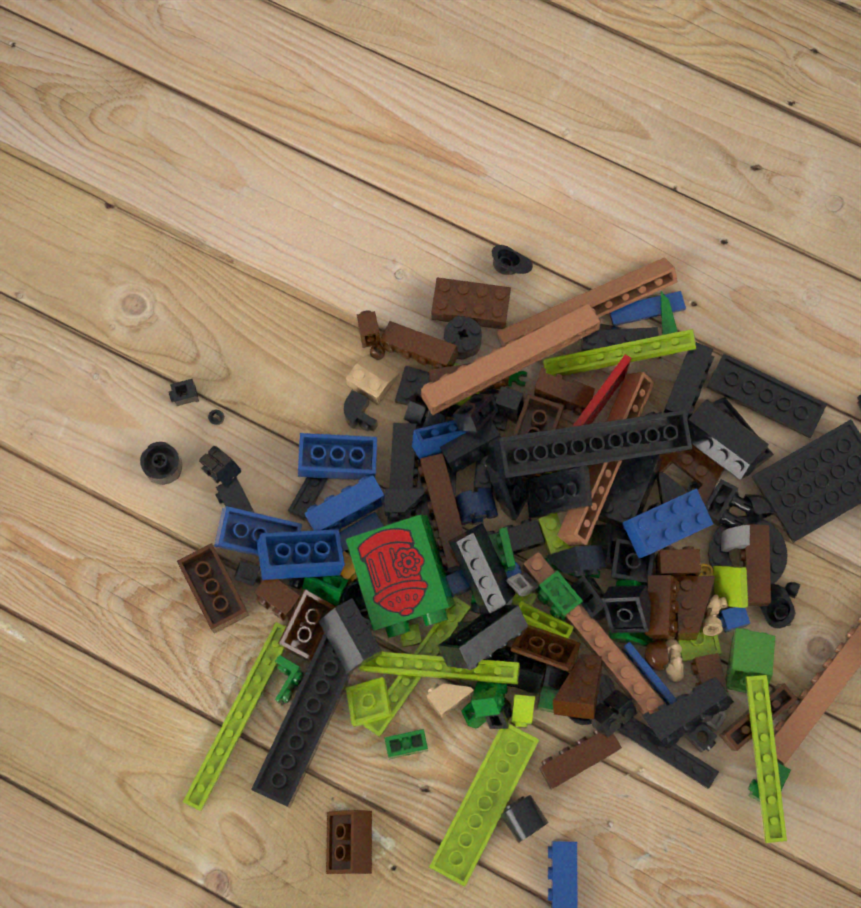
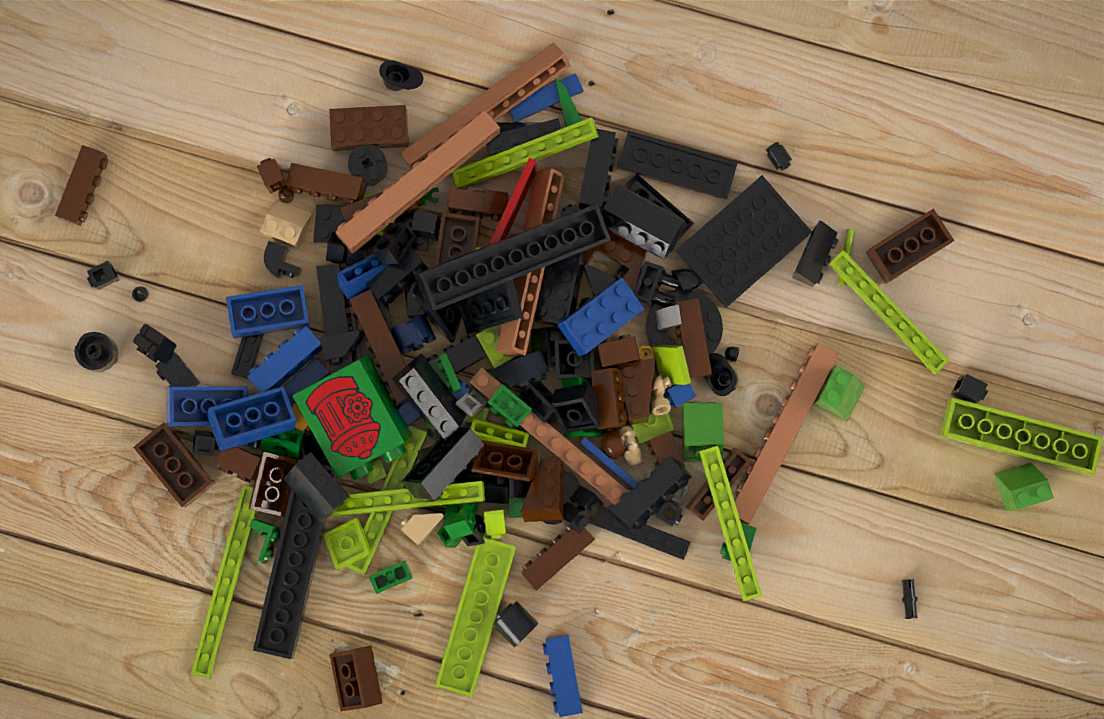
camera: 15 degrees left, 10 degrees up
(183, 305) = (81, 185): none -> reddish brown brick

